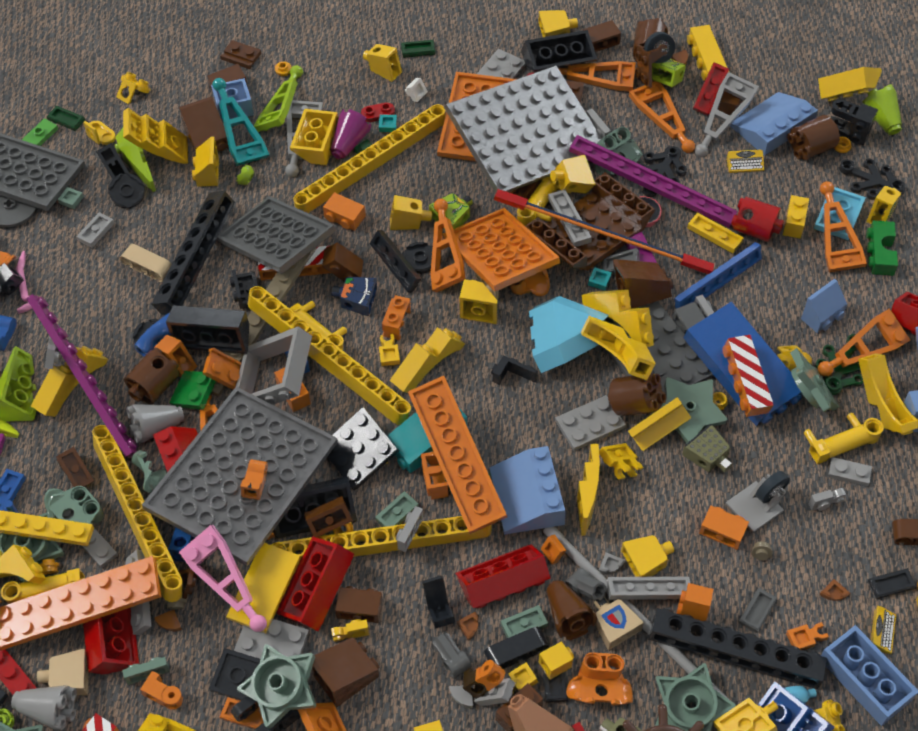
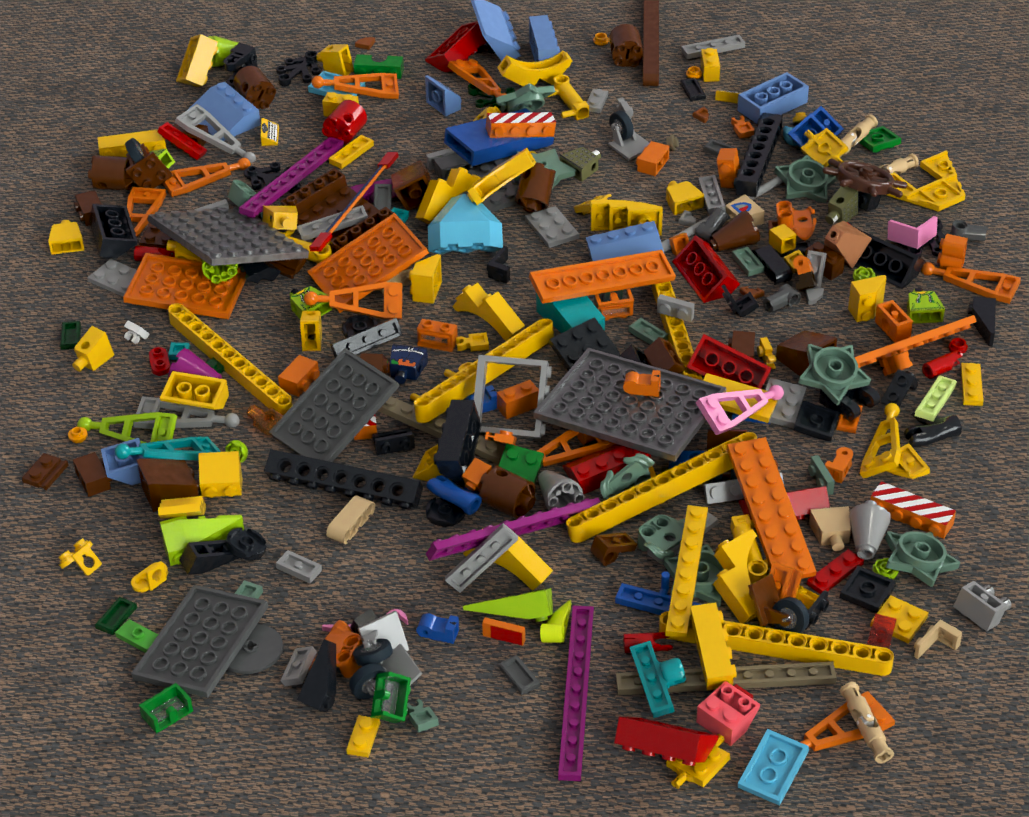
camera: 90 degrees left, 15 degrees down
(286, 192) = (262, 419): none -> clear orange piece
(659, 424) = (561, 185): yellow panel -> none
(721, 275) = (404, 150): blue plate -> none

